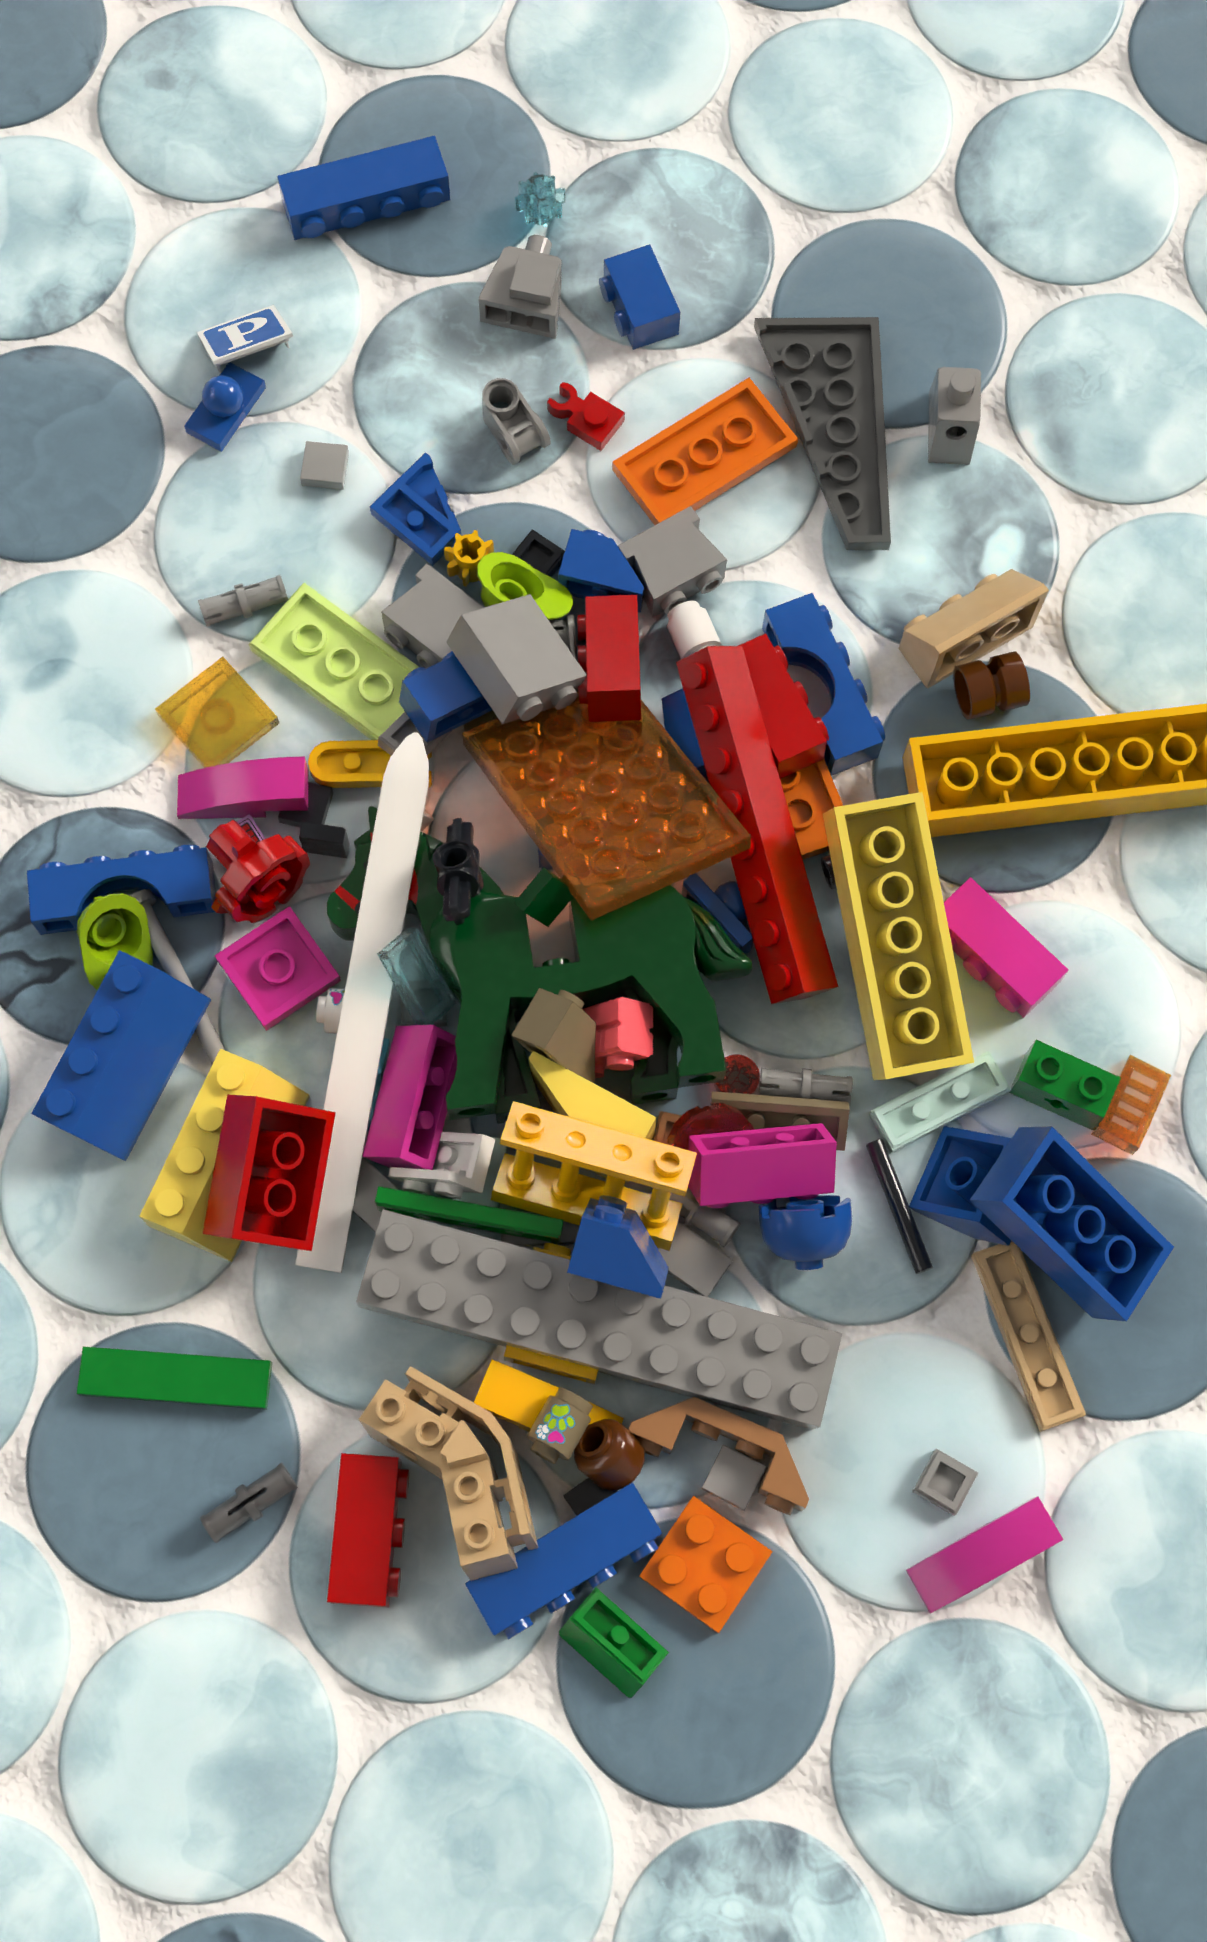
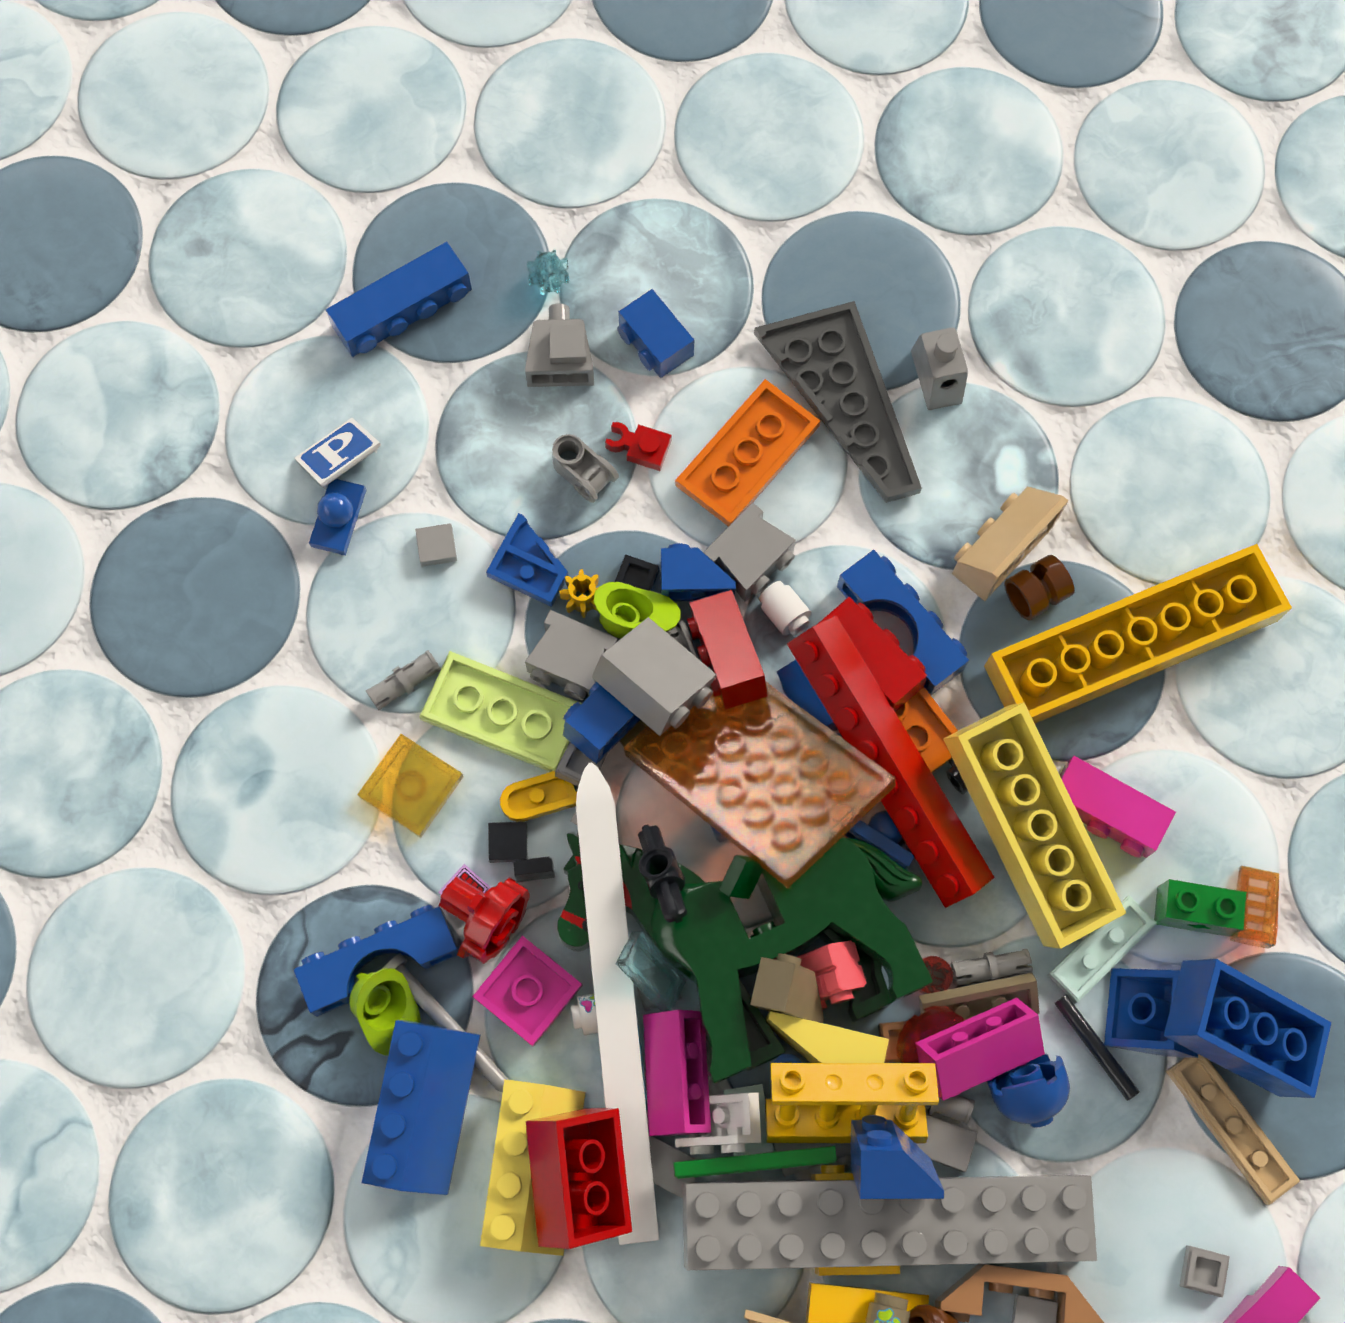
camera: 15 degrees left, 0 degrees up
(244, 789) = (452, 844): dark pink slope -> none

